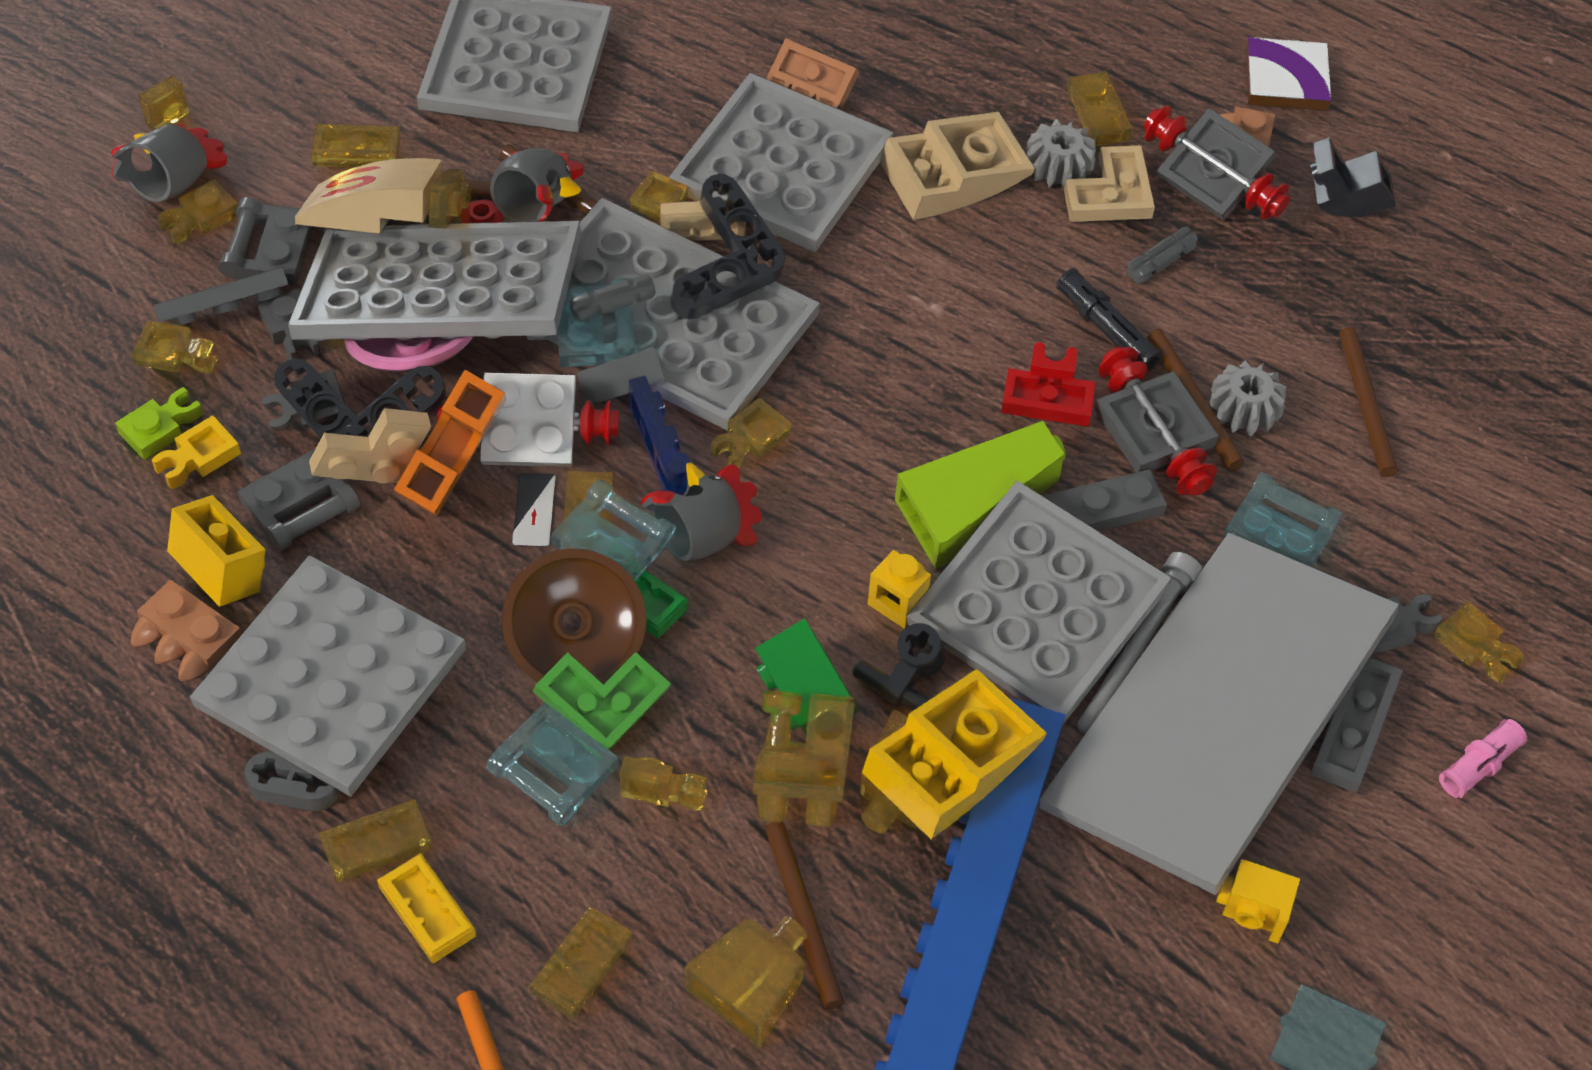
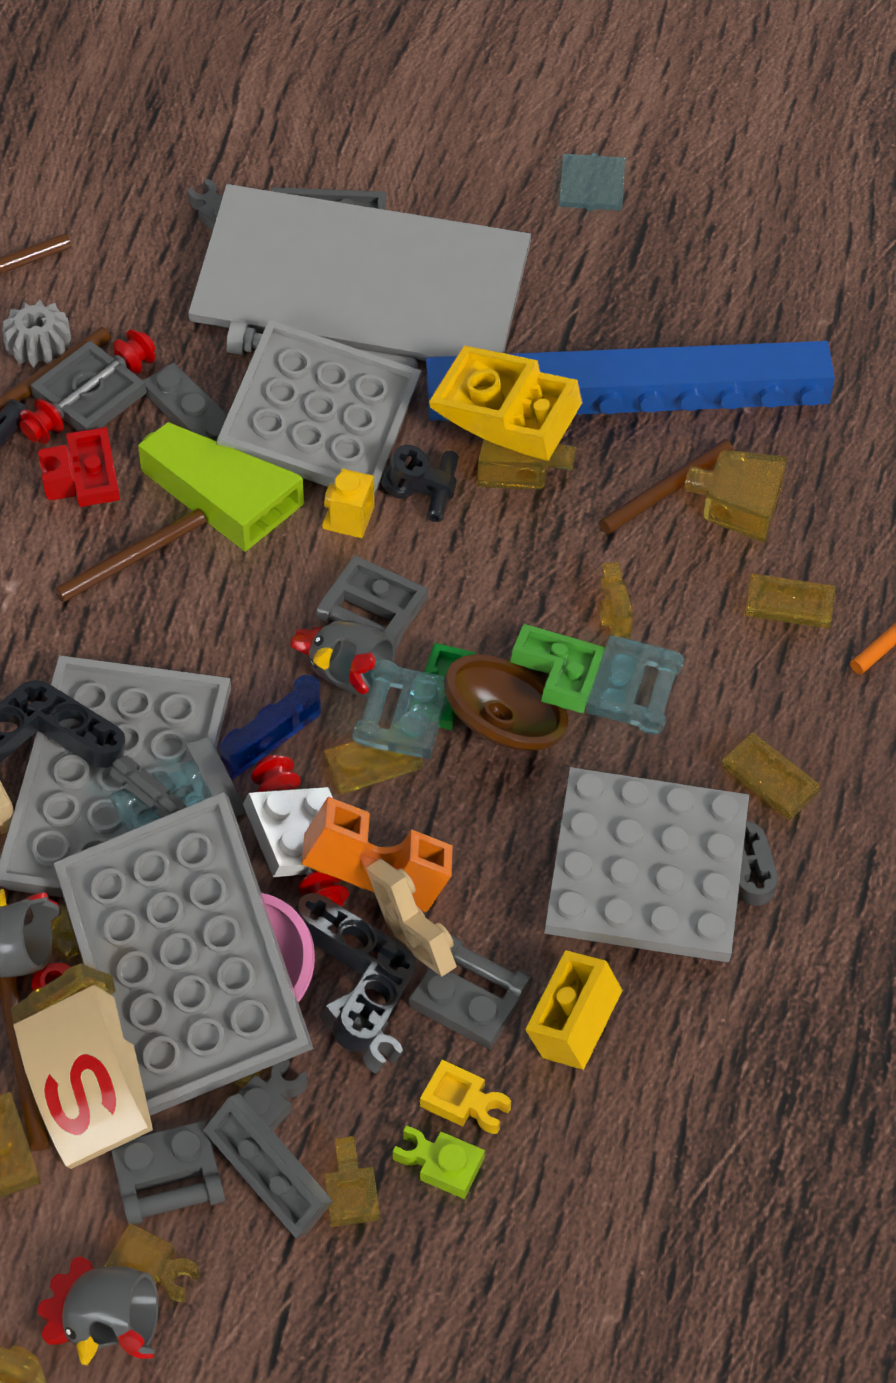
camera: 110 degrees left, 0 degrees up
(185, 627) = (649, 1022): nougat plate -> none
(426, 908) = (806, 717): yellow plate -> none
(534, 509) = (393, 804): sticker -> none
(752, 430) = (232, 660): clear yellow plate -> none
(774, 582) = (377, 592): none -> dark grey plate
(799, 665) = (474, 531): green brick -> none
(800, 769) = (551, 497): clear yellow hips -> none
(924, 394) = (130, 555): none -> reddish brown bar
(1259, 898) = (513, 214): yellow brick -> none
(1278, 532) = (167, 296): clear light blue plate -> none
(1477, 637) = (212, 162): clear yellow plate -> none
(1483, 758) = (321, 138): bright pink pin -> none

